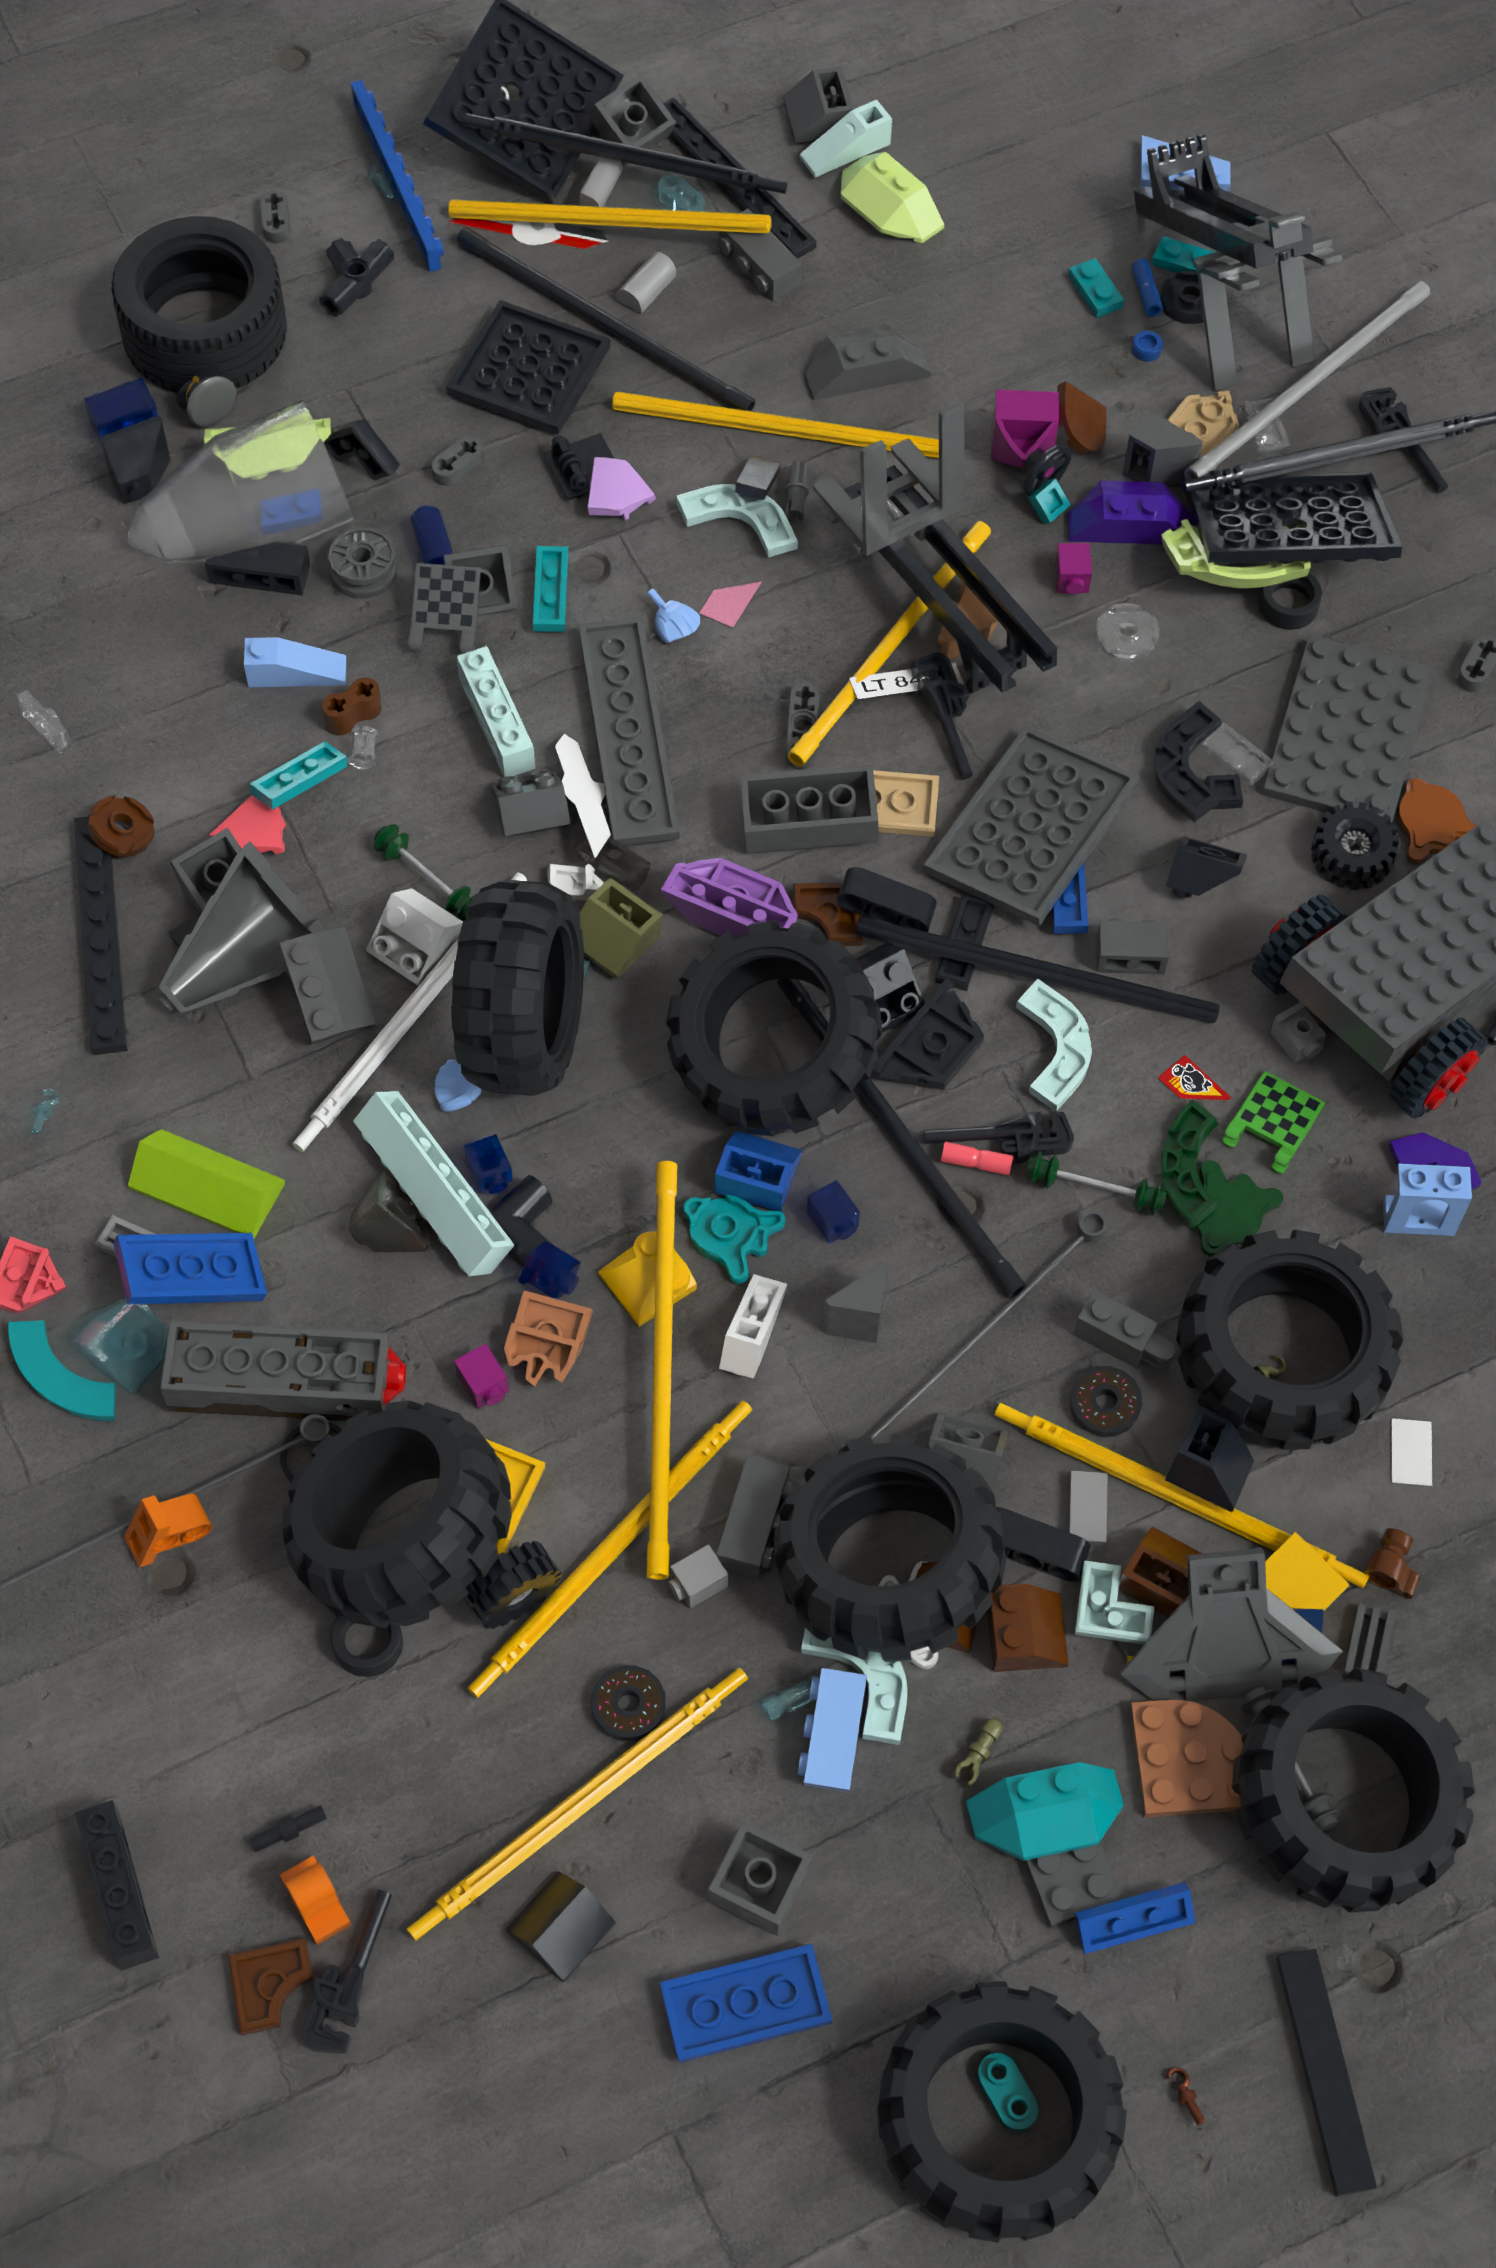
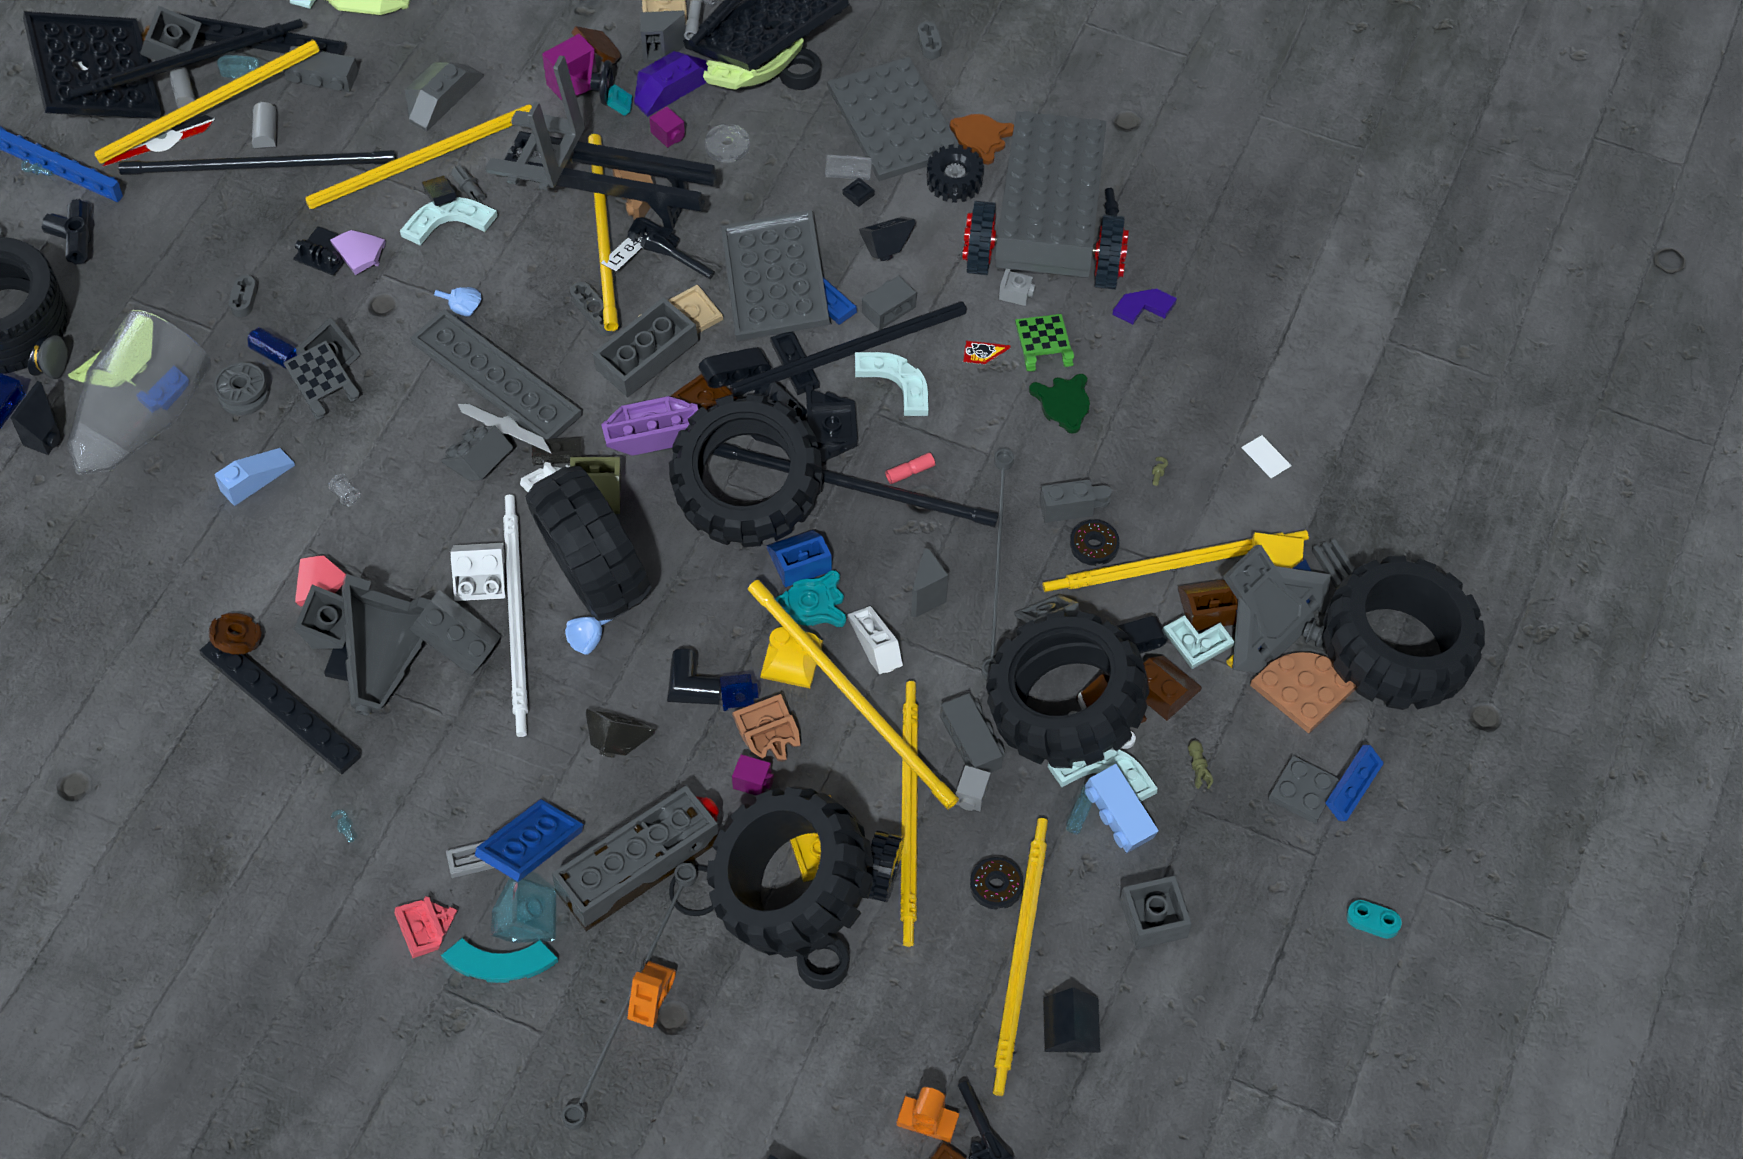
camera: 40 degrees left, 5 degrees down
(44, 721) = (125, 608): clear plate -> none
(203, 1182) = (484, 794): lime slope -> none
(265, 567) = (180, 431): black slope -> none
(288, 1828) = (876, 1095): black bar -> none
(298, 775) = (320, 530): teal plate -> none
(354, 705) = (314, 472): reddish brown axle -> none
(361, 441) = (187, 320): black brick -> none
(396, 846) = (418, 531): dark green axle -> none
(433, 1183) = (623, 694): light aqua brick -> none
(488, 1164) = (645, 662): clear blue brick -> none
(496, 712) = (407, 417): light aqua brick -> none
(528, 367) = (236, 216): black plate -> none
(550, 588) = (372, 329): teal plate -> none
(729, 603) = (484, 271): clear pink sticker -> none
(745, 2003) = (1205, 982): blue plate -> none
(833, 1212) = (862, 549): clear blue brick -> none
(1020, 1136) = (921, 439): black piece -> none
(1047, 1810) = (1261, 767): teal wedge -> none
(1048, 1171) = (956, 447): dark green axle -> none
(1061, 2040) = (1409, 877): black tyre -> none
(1088, 1506) = (1135, 600): light grey tile -> none
(1172, 763) = (822, 196): black plate -> none
(1180, 1164) = (1019, 397): dark green tile -> none
(1187, 2097) = (1458, 849): copper hand -> none
(1212, 1460) = (1177, 529): black slope -> none
(1311, 1272) = (1168, 397): black tyre -> none
(1326, 2073) = (1511, 784): black tile -> none
(1389, 1568) = (1310, 517): reddish brown piece -> none
(1417, 1202) = (1164, 328): light blue panel -> none

